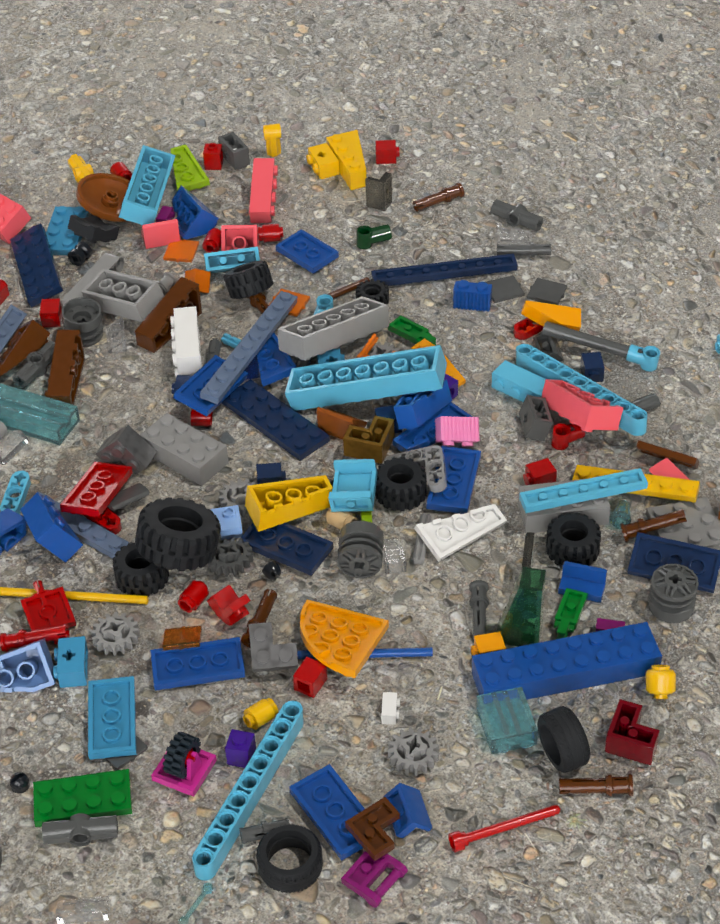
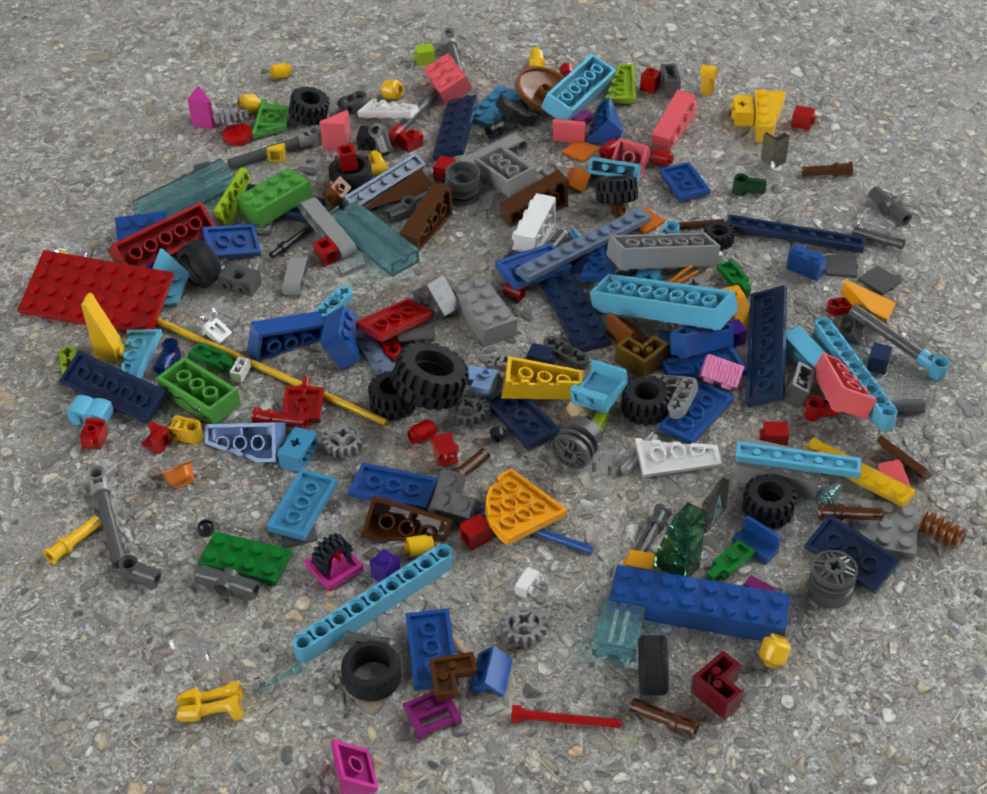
camera: 25 degrees right, 0 degrees up
(182, 637) = (393, 462): clear orange piece -> none
(222, 697) = (395, 521): none -> reddish brown wedge
(308, 468) = (576, 358): none -> dark grey beam
(485, 390) = (766, 347): none -> dark blue plate

